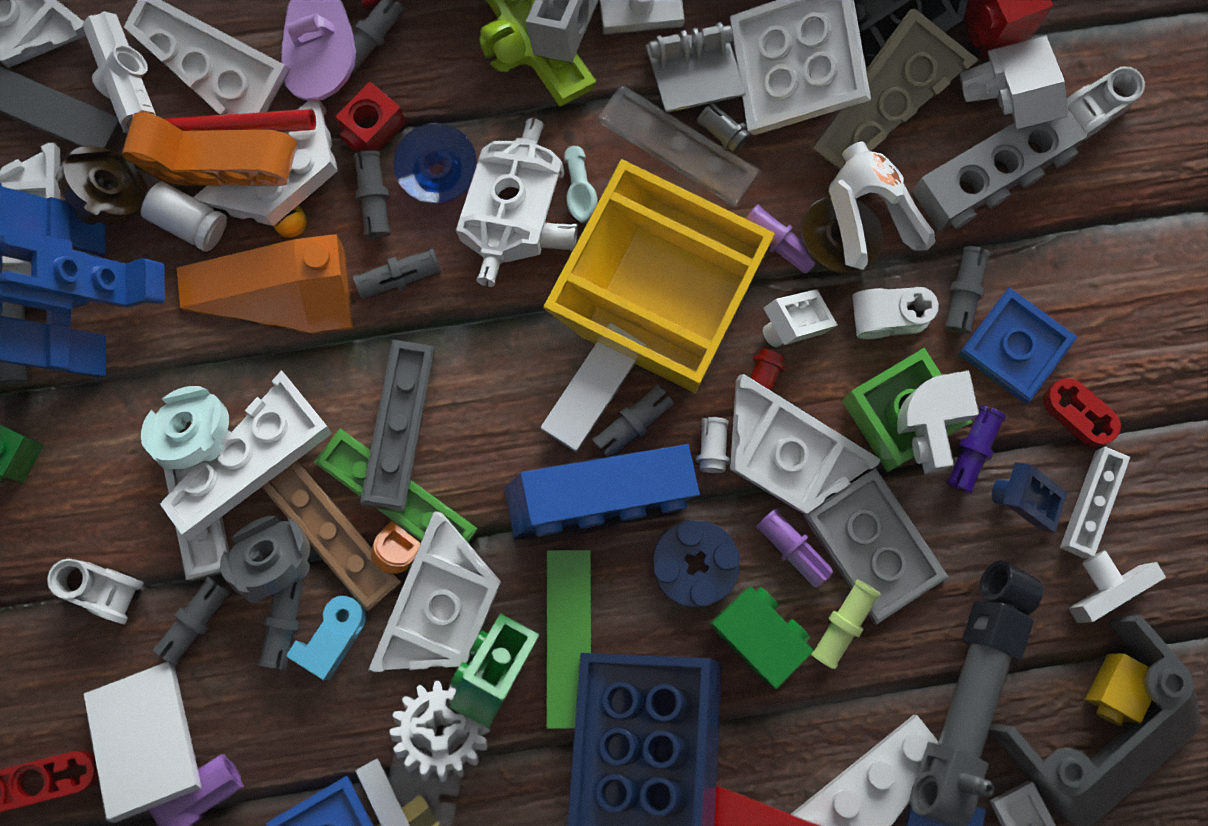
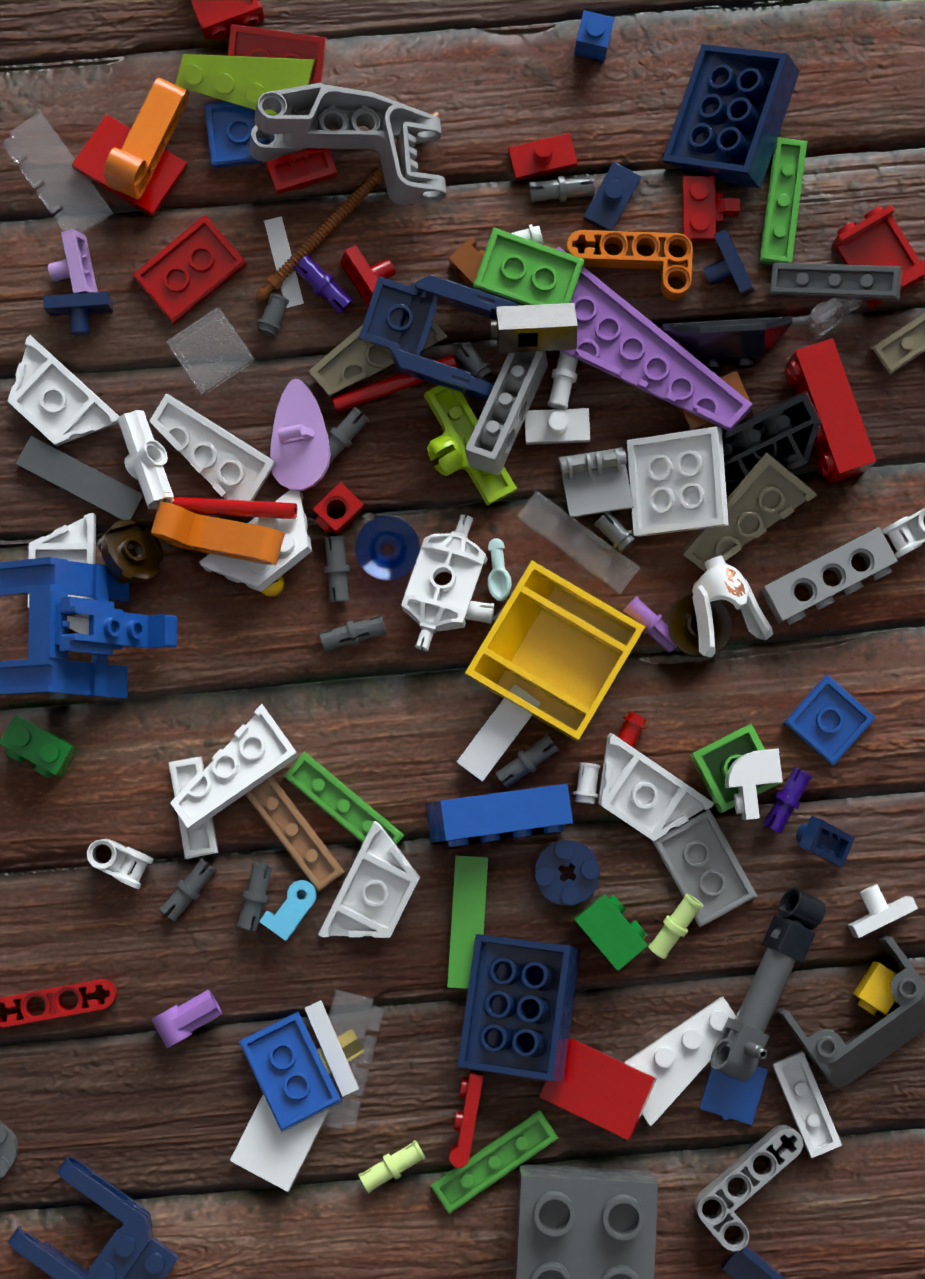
camera: 10 degrees right, 5 degrees up
(141, 742) = (151, 976): white tile -> none
(183, 216) = (192, 578): white piece -> none
(199, 441) = (200, 758): light aqua plate -> none
(282, 285) = (261, 638): orange wedge -> none
(286, 564) = (256, 859): dark grey plate -> none
(394, 549) = (341, 846): orange tile -> none
(397, 426) = (348, 752): dark grey tile -> none
(423, 729) = (381, 984): white gear -> none
(493, 670) = (411, 944): green brick -> none
(795, 548) = (642, 866): medium lavender axle -> none
(797, 318) = (659, 690): white tile -> none
(886, 311) = (726, 689): white piece -> none
(967, 290) = (793, 674): dark grey pin -> none
(1023, 81) = (852, 513): white hinge -> none
(1087, 407) = (867, 782): red beam -> none
(1095, 502) = (874, 847): white piece -> none

